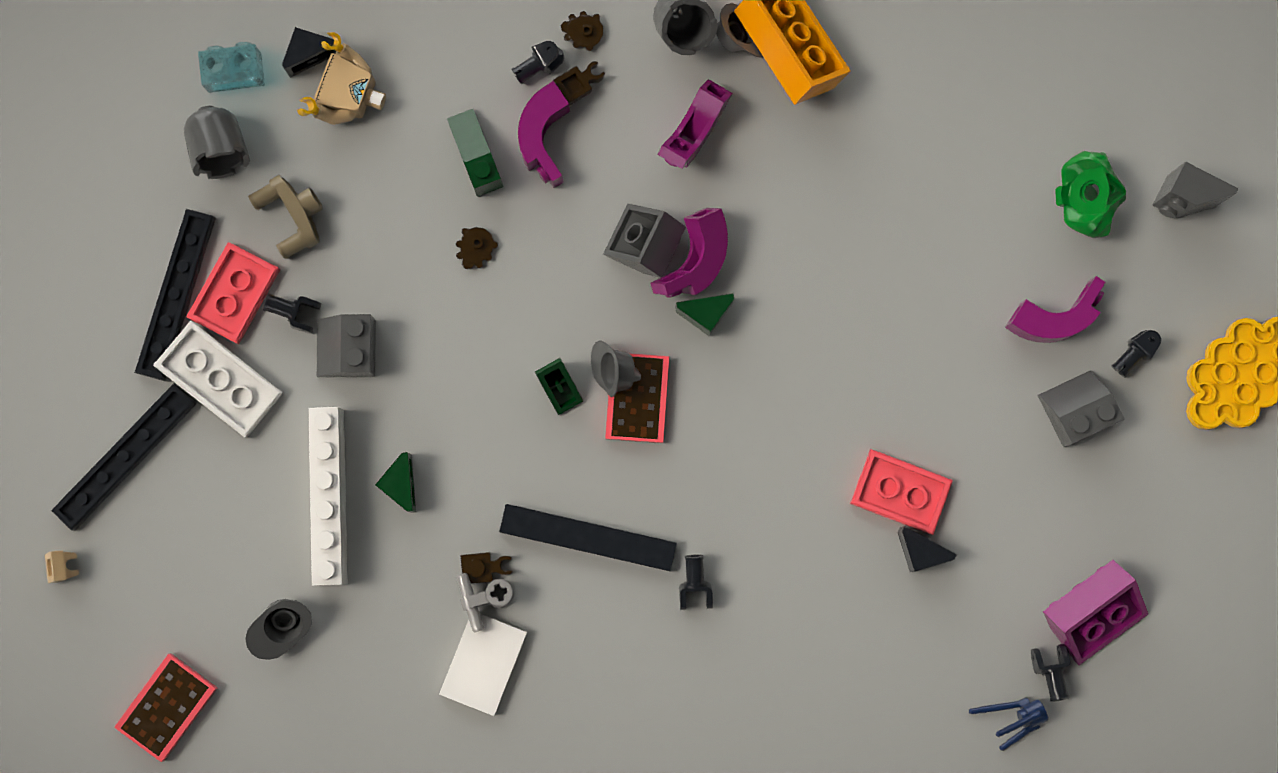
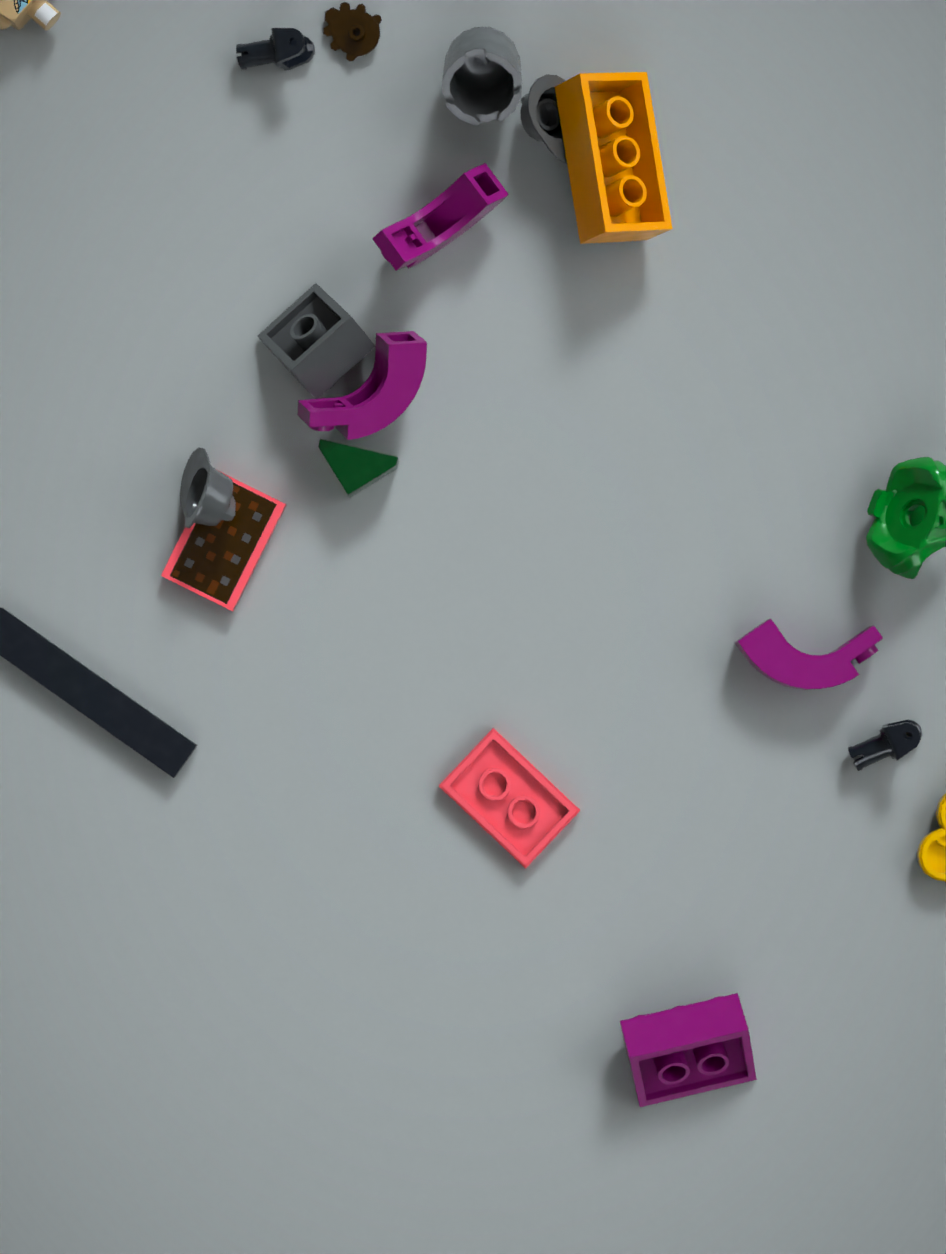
camera: 25 degrees right, 5 degrees up
(475, 152) = (145, 136): slope -> none
(475, 247) = (96, 260): dark brown piece -> none
(537, 116) = (237, 127): magenta arch -> none
(558, 386) = (128, 485): dark green slope -> none
(576, 84) = (310, 99): dark brown plate -> none
(695, 581) = (199, 803): black piece -> none
(922, 552) = (501, 884): black slope -> none
(1030, 717) = (548, 1145): dark blue plant -> none
(1053, 673) = (601, 1104): black piece -> none
(1080, 408) = (782, 785): dark grey slope -> none

